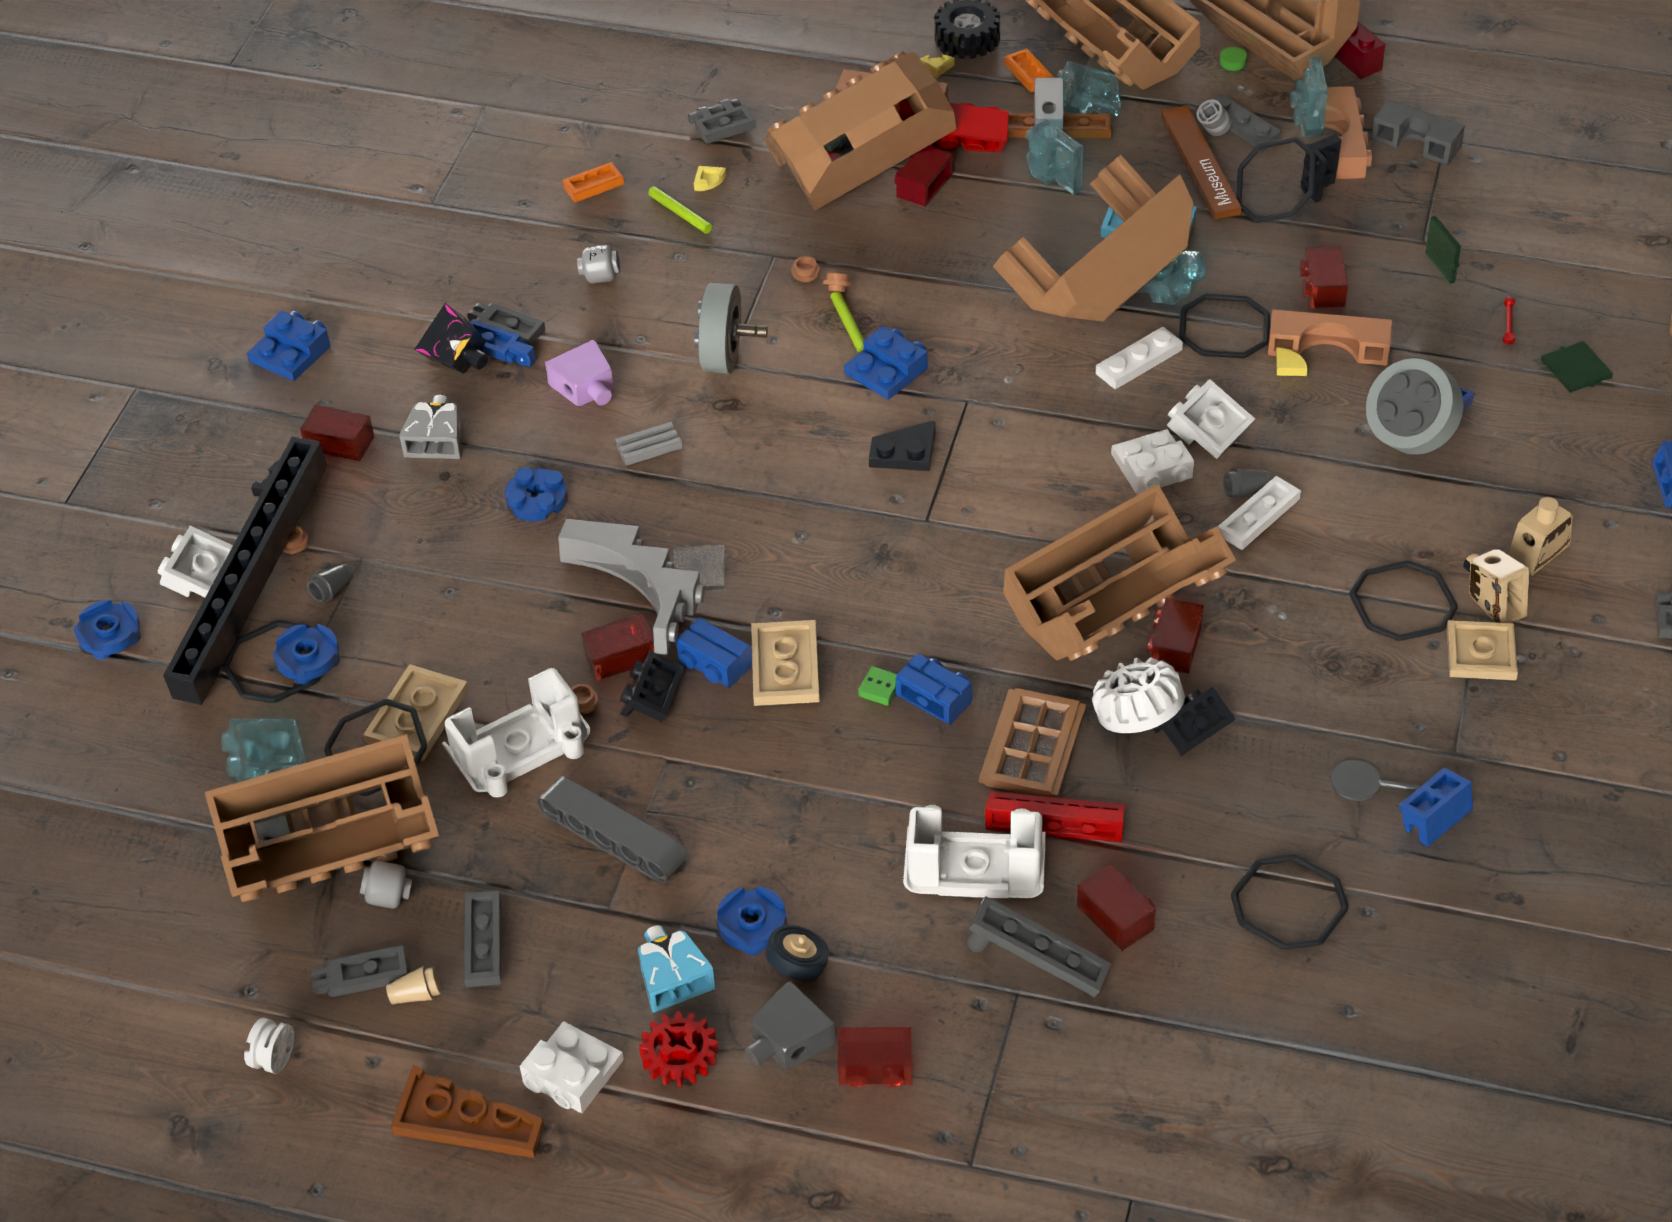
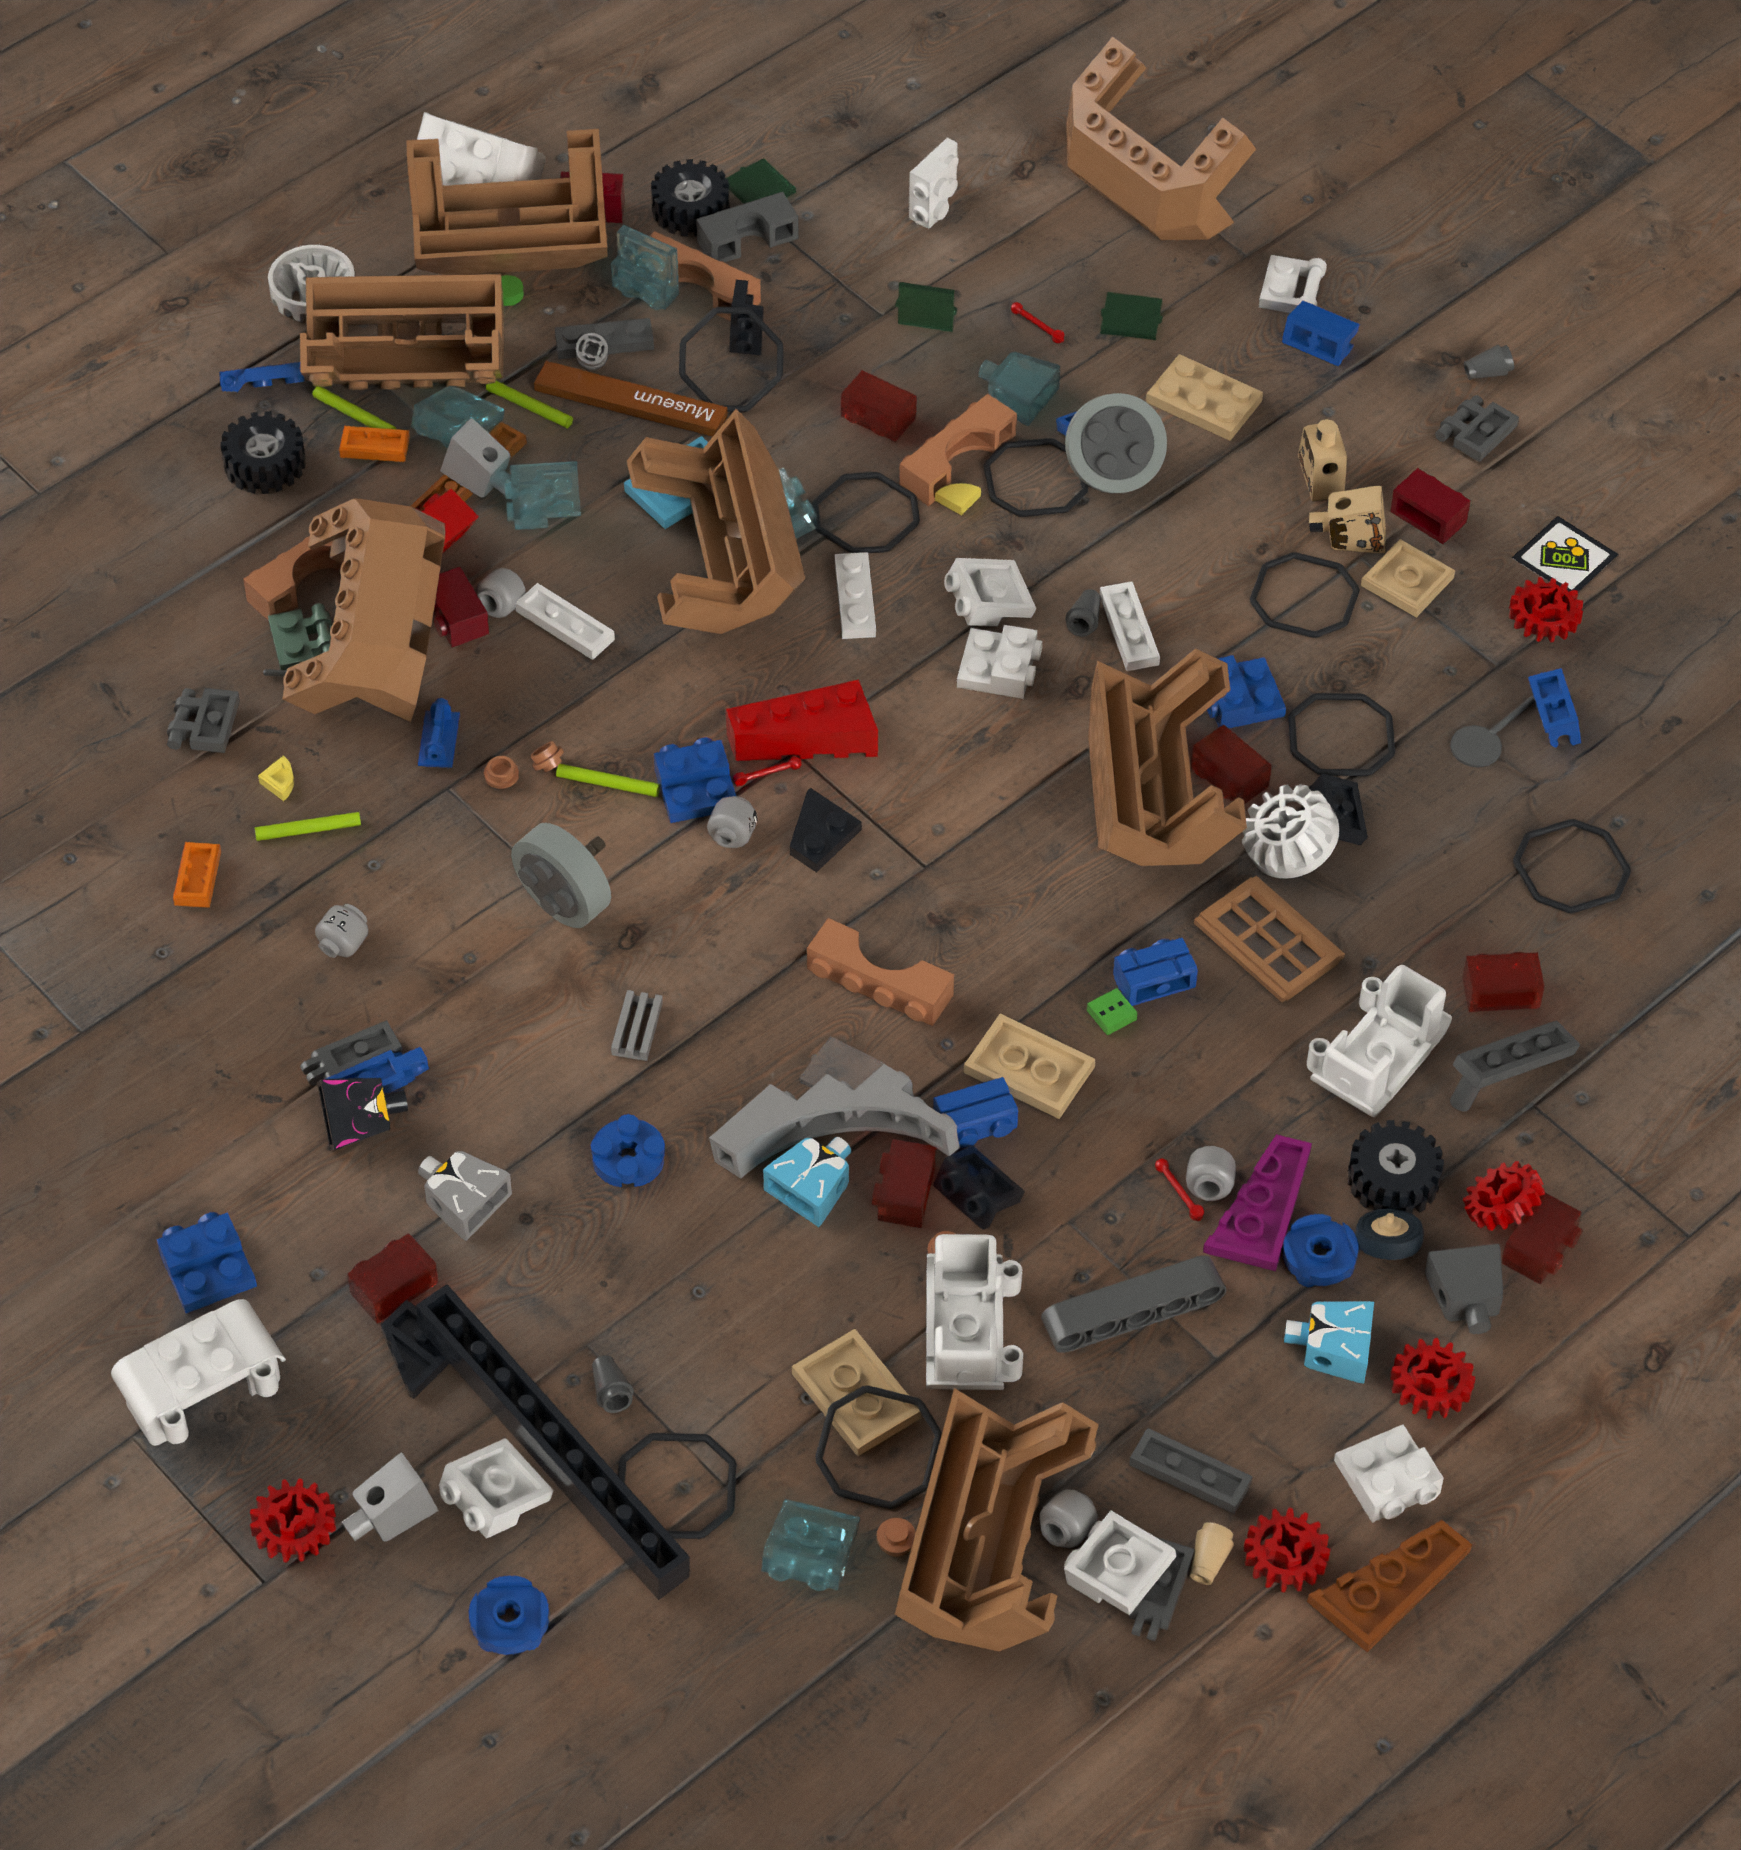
camera: 60 degrees left, 5 degrees up
(112, 486) = (281, 1510): none -> red gear
(152, 519) = (390, 1501): none -> light grey torso
(203, 373) = (194, 1365): none -> white container
(269, 1045) = (1205, 1702): white wheel -> none
(308, 666) = (703, 1468): blue plate -> none
(358, 929) = (1118, 1563): none -> white plate
(447, 1032) = (1277, 1561): none -> red gear
(581, 375) = (497, 1027): lavender torso -> none
(584, 594) = (809, 1177): none -> medium azure torso
(733, 828) = (1196, 1211): none -> red hinge
(768, 814) = (1210, 1173): none -> light grey head
(768, 862) = (1263, 1208): none -> magenta wing
(800, 564) = (916, 991): none -> nougat arch
(802, 228) = (439, 735): none -> blue hinge
(854, 939) = (1378, 1178): none -> black wheel
(864, 397) = (732, 822): none -> light grey head
(890, 1006) = (1504, 1196): none -> red gear
(913, 385) = (741, 778): none -> red hinge
(937, 65) = (285, 509): light yellow tile -> none
(956, 187) = (500, 592): none -> light grey head
(965, 230) = (565, 621): none -> white plate
(987, 388) = (804, 724): none -> red wedge
(1049, 38) = (350, 409): none -> lime bar
(1059, 816) = (1380, 965): red fence -> none
(1144, 120) = (530, 404): none -> lime bar
(1260, 606) = (1251, 695): none -> blue plate
(1279, 728) = (1341, 696): none -> black piece
(1334, 420) = (1032, 512): none -> black piece
(1415, 86) = (688, 194): none -> black wheel
(1432, 337) = (1022, 383): none -> clear light blue torso
(1478, 120) = (758, 182): none -> clear green piece
(1538, 750) = (1546, 609): none -> red gear
(1539, 445) = (1204, 397): none -> tan plate
(1565, 192) = (932, 184): none -> white plate
(1571, 626) = (1430, 506): none -> dark red piece
(1620, 741) = (1565, 554): none -> sticker

